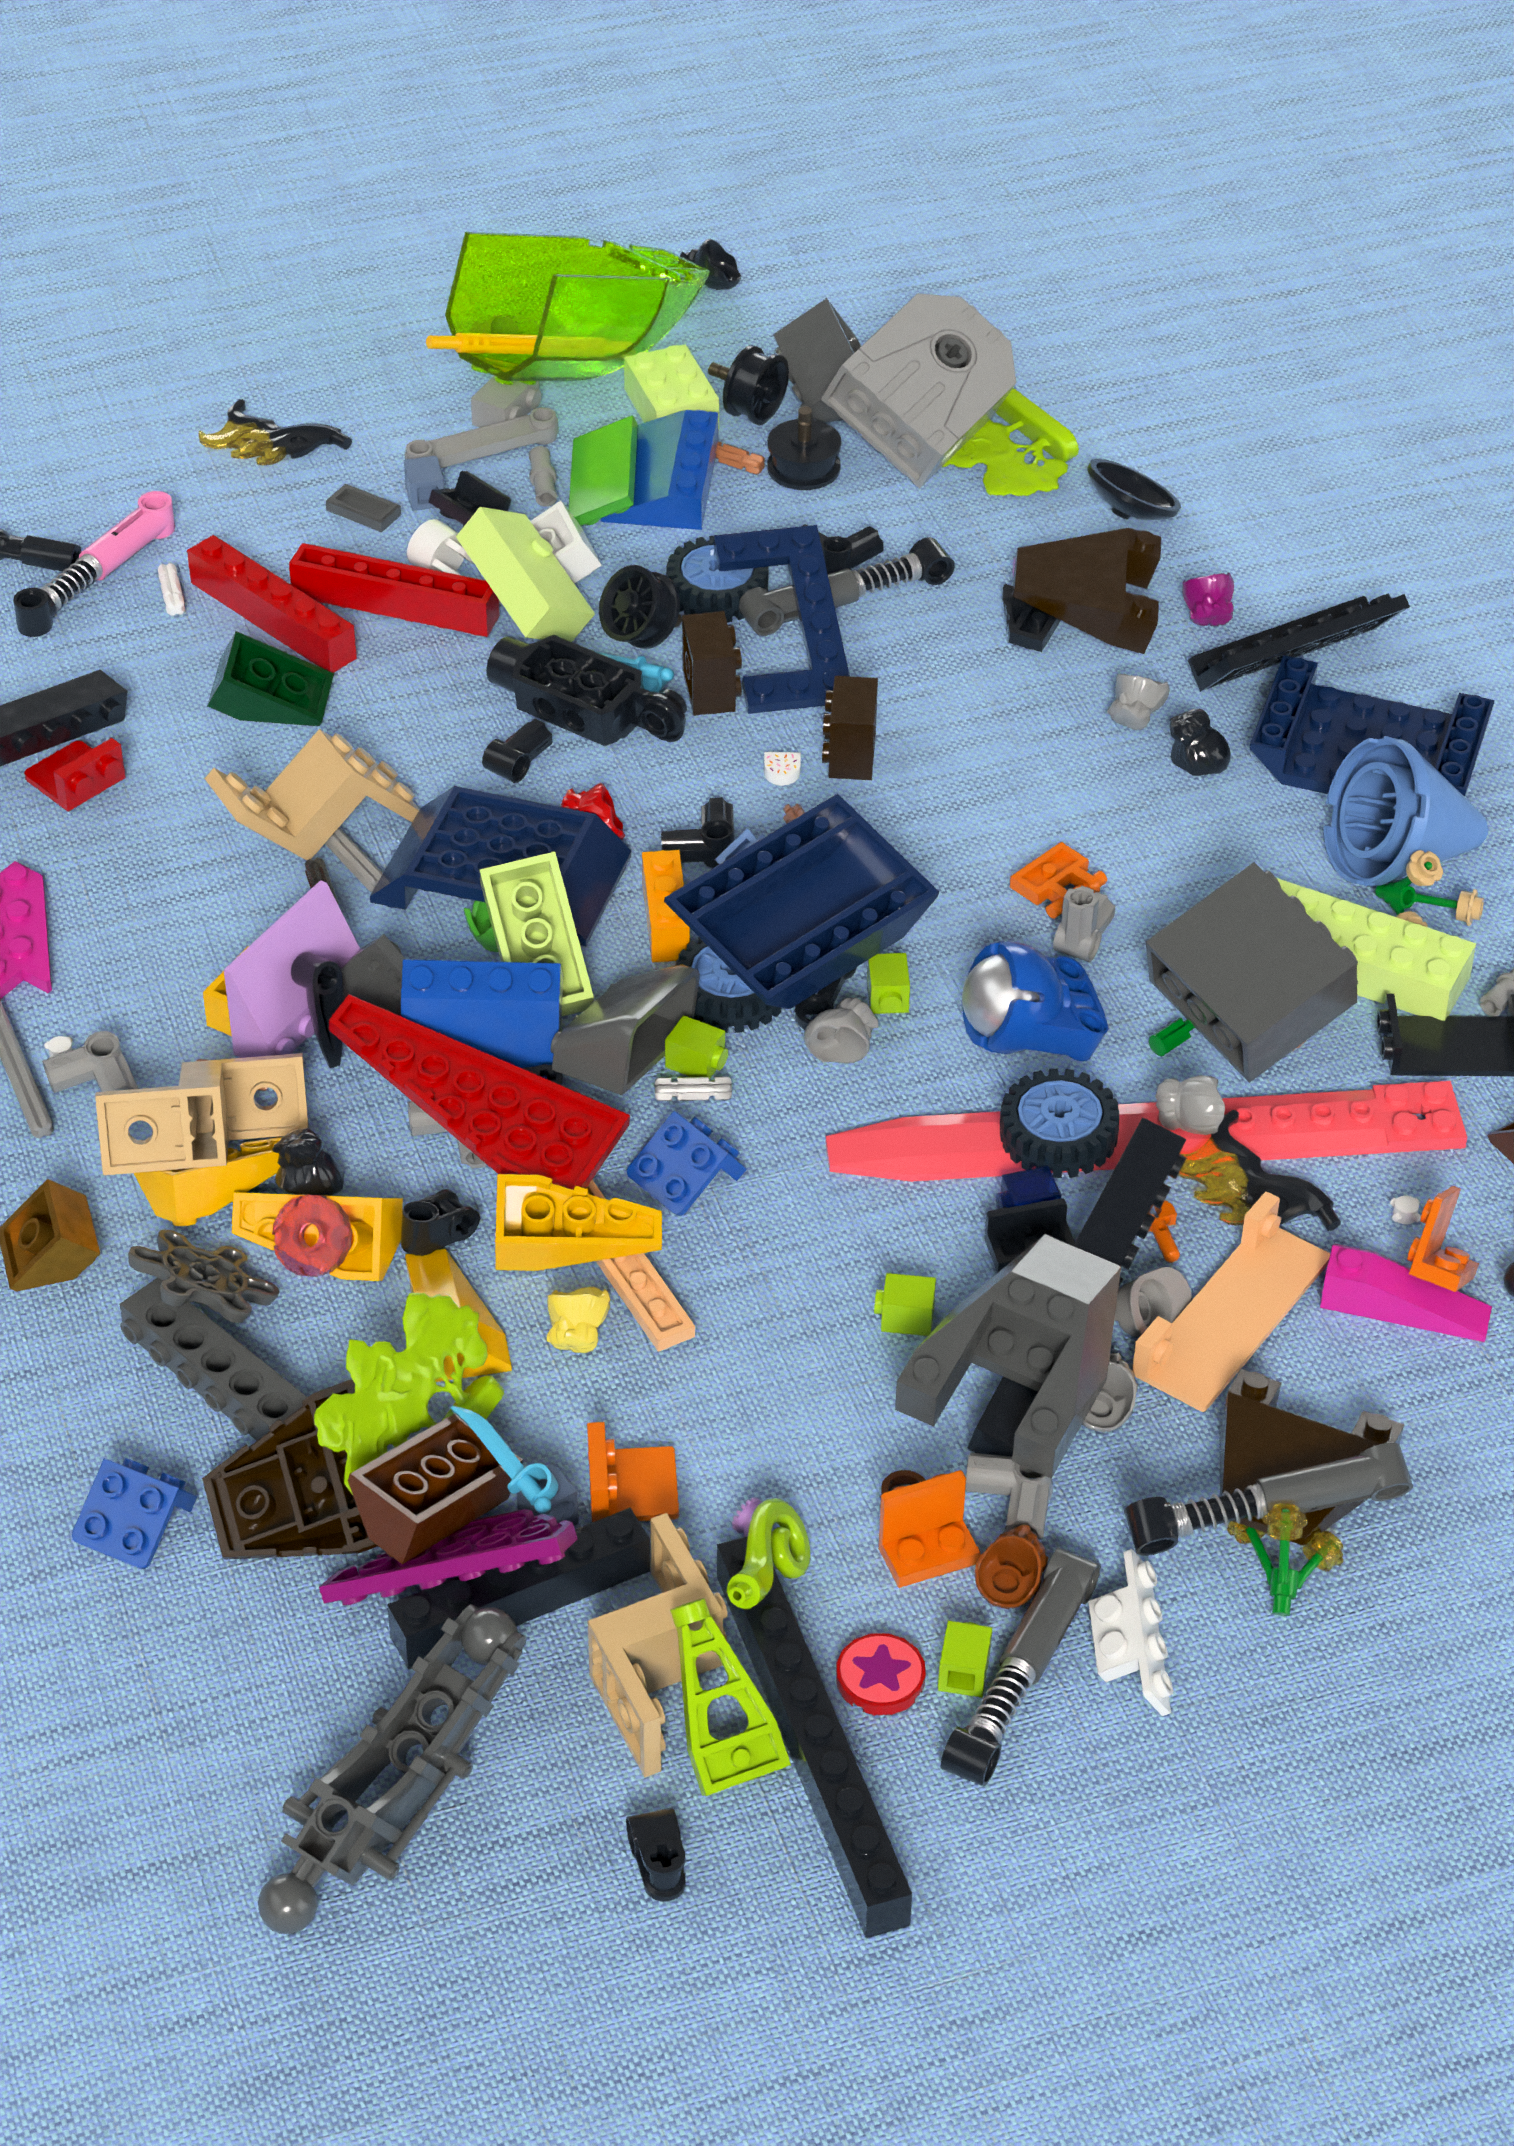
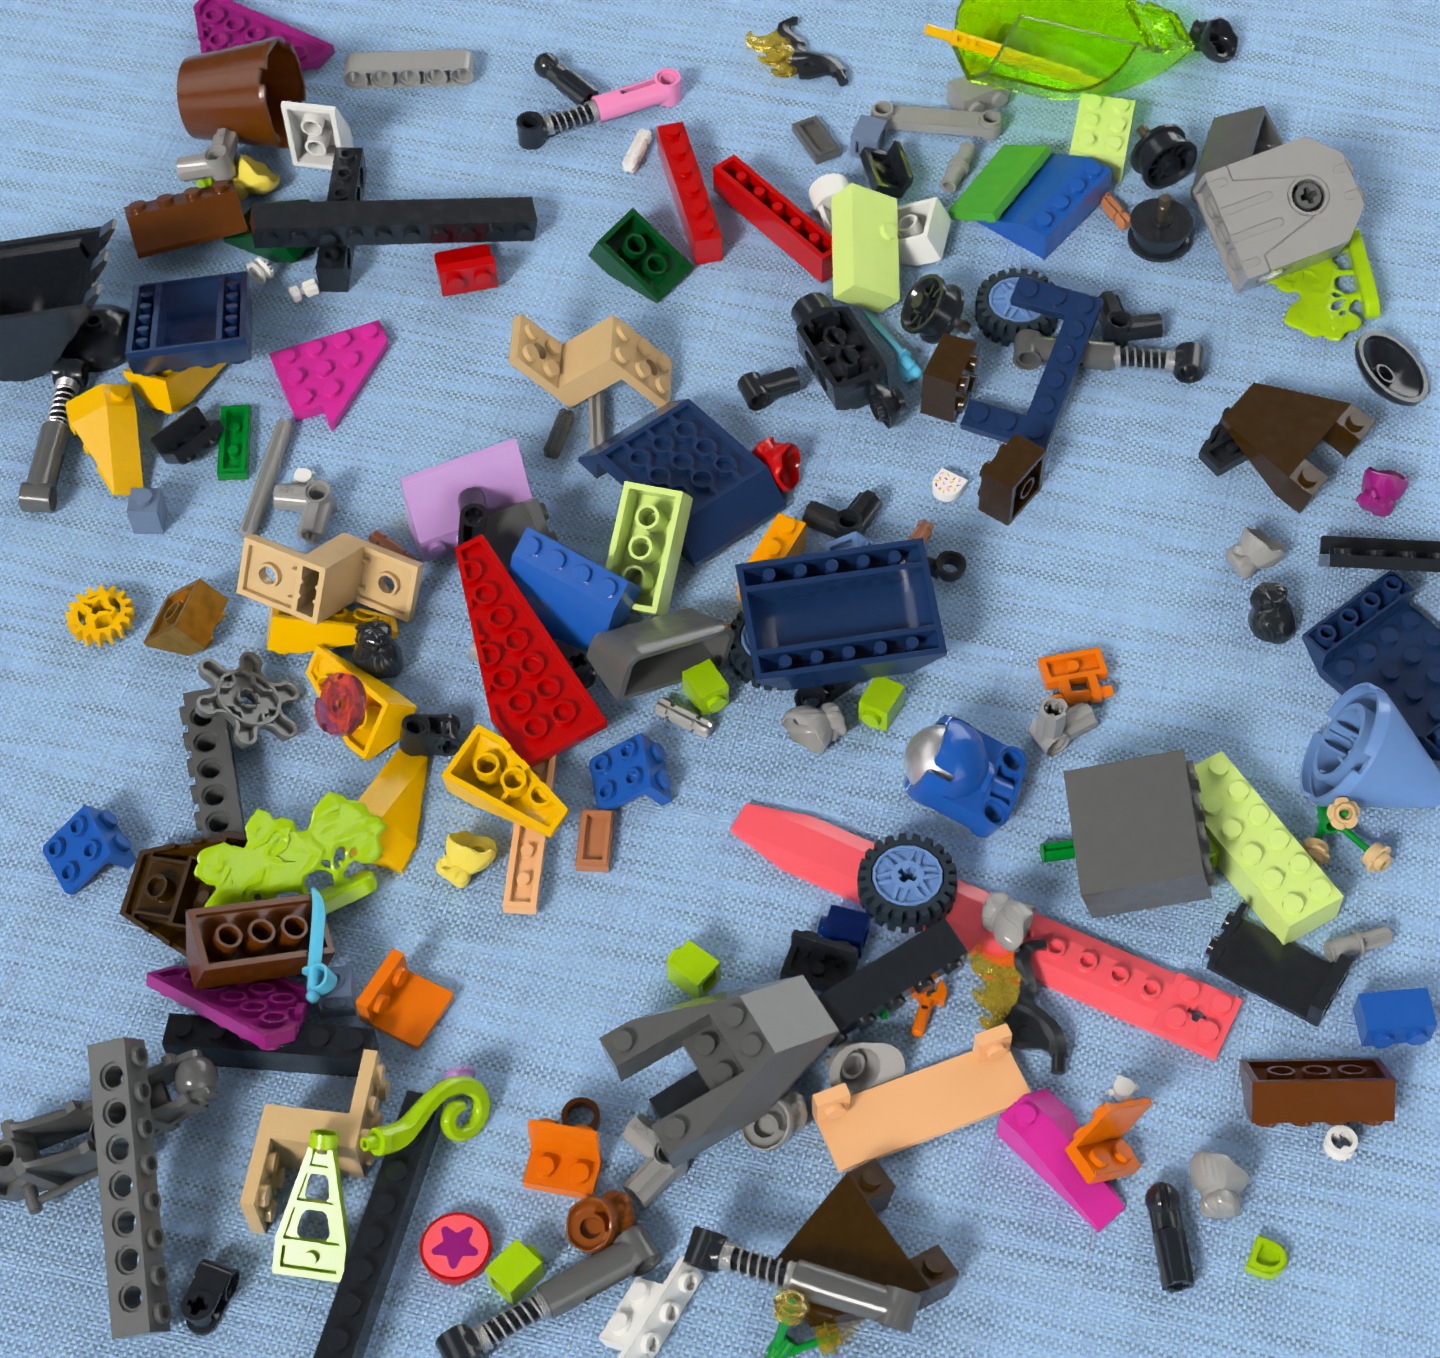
camera: 35 degrees right, 10 degrees up
(395, 1649) = (119, 1204): none -> dark grey brick
(697, 1242) = (594, 840): none -> nougat tile

